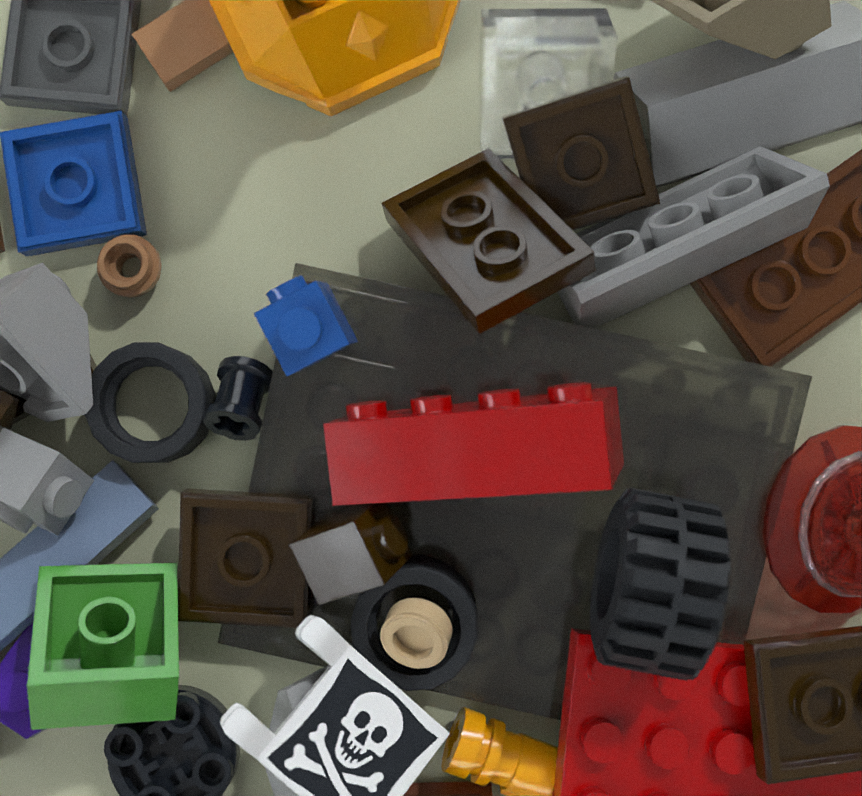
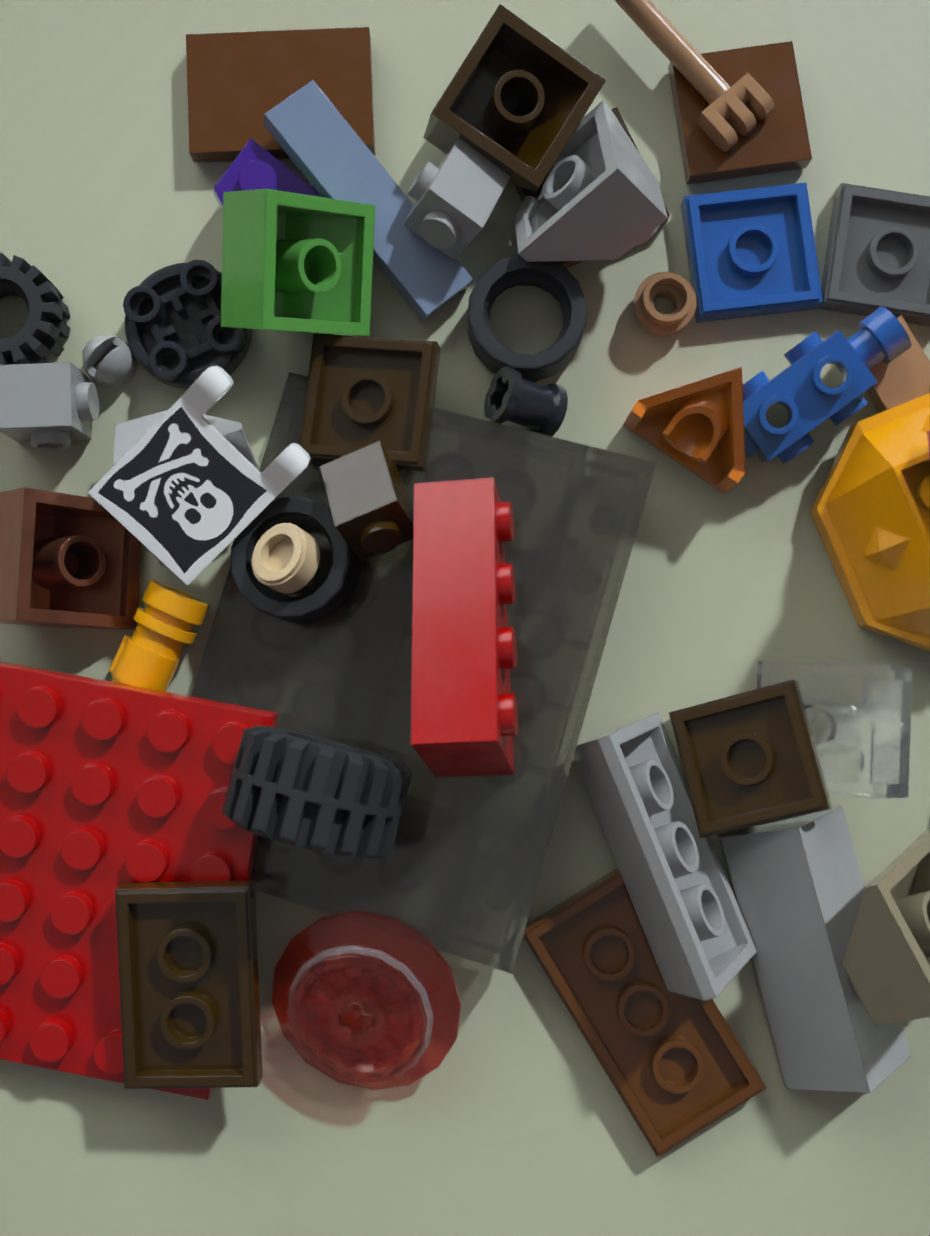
camera: 95 degrees right, 0 degrees up
(210, 124) = (805, 395): none -> blue brick
(255, 223) = (698, 427): none -> orange slope
(304, 324) = (592, 466): blue brick -> none
(488, 239) = (670, 655): dark brown plate -> none

